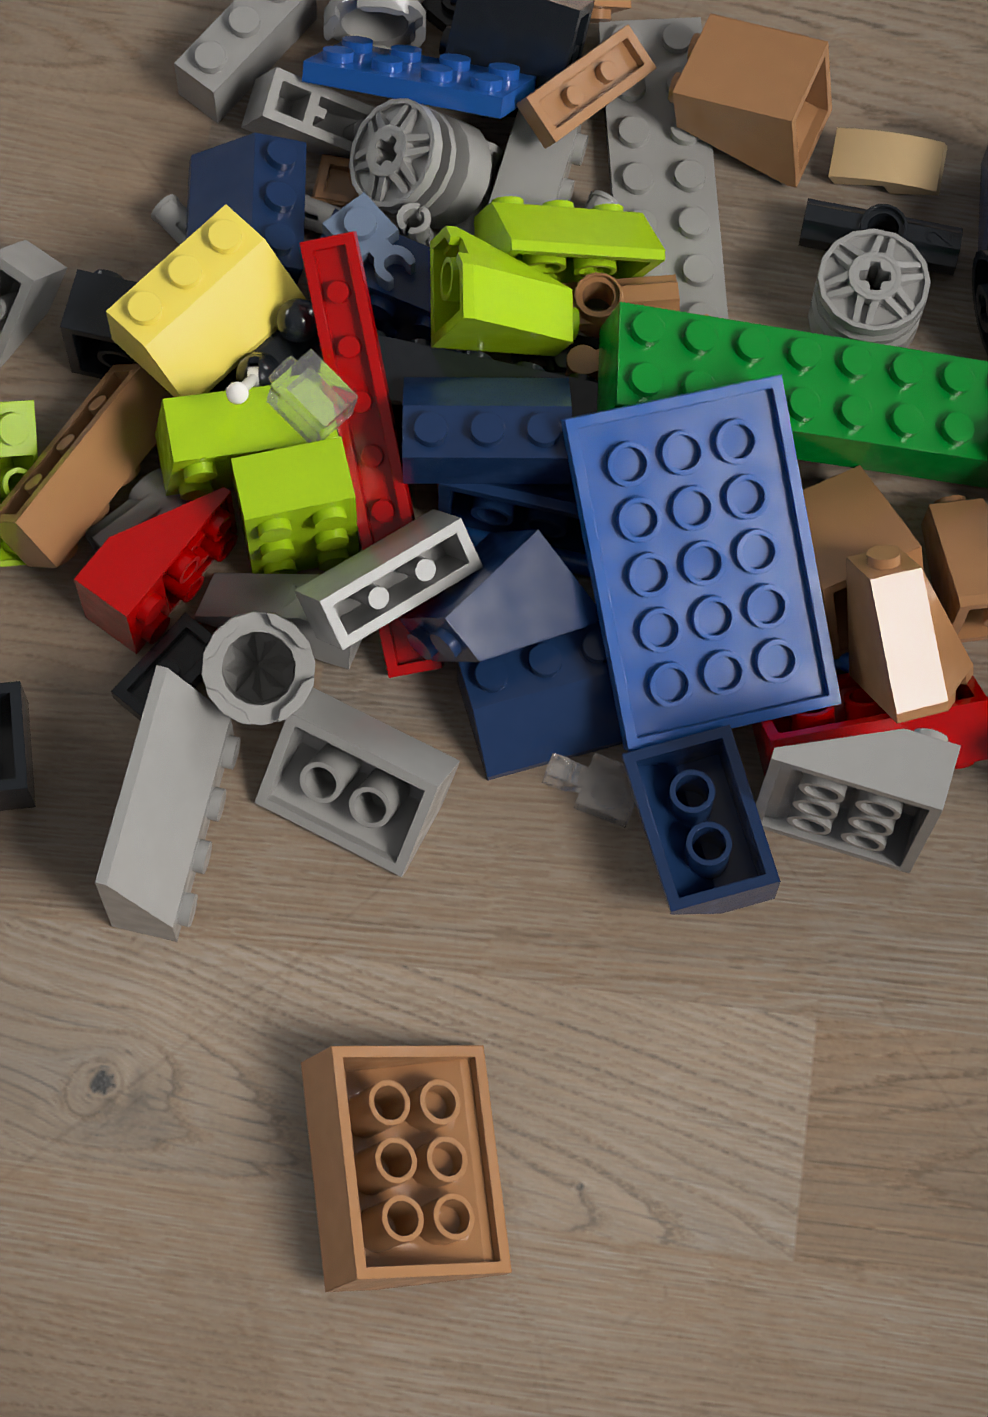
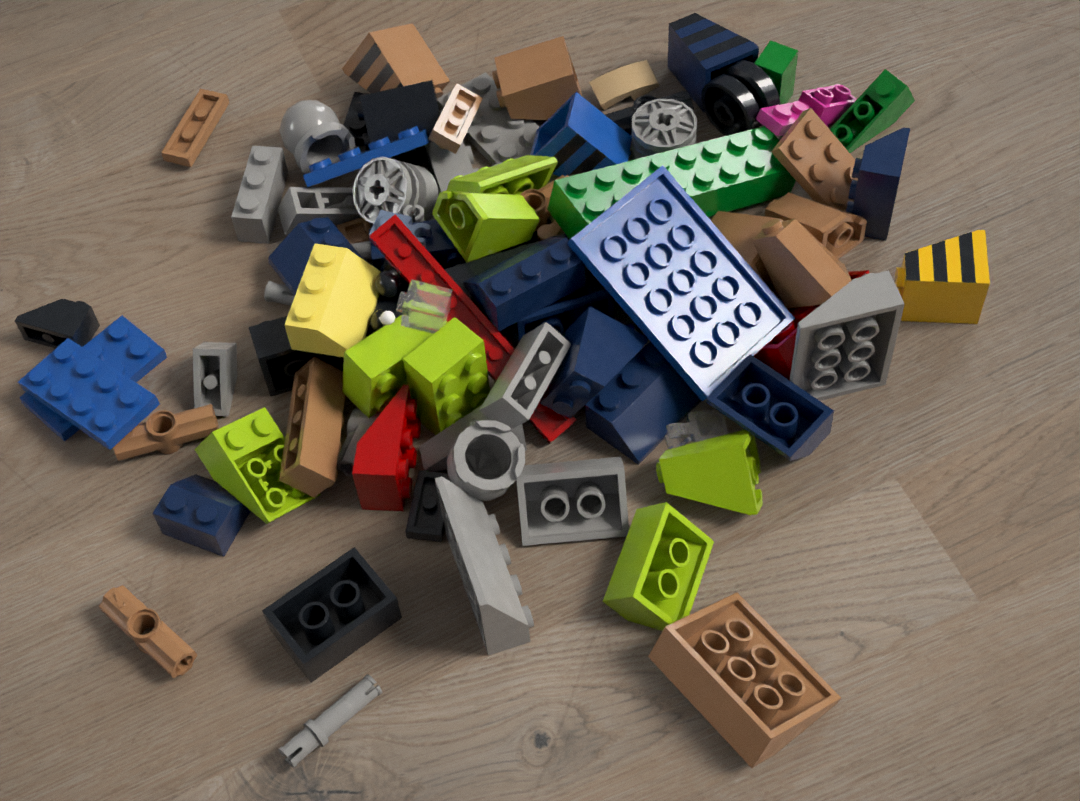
camera: 25 degrees left, 15 degrees down
(401, 952) = (658, 568): none -> lime slope
(569, 864) = (715, 472): none -> lime slope
(740, 239) = (581, 138): none -> blue slope

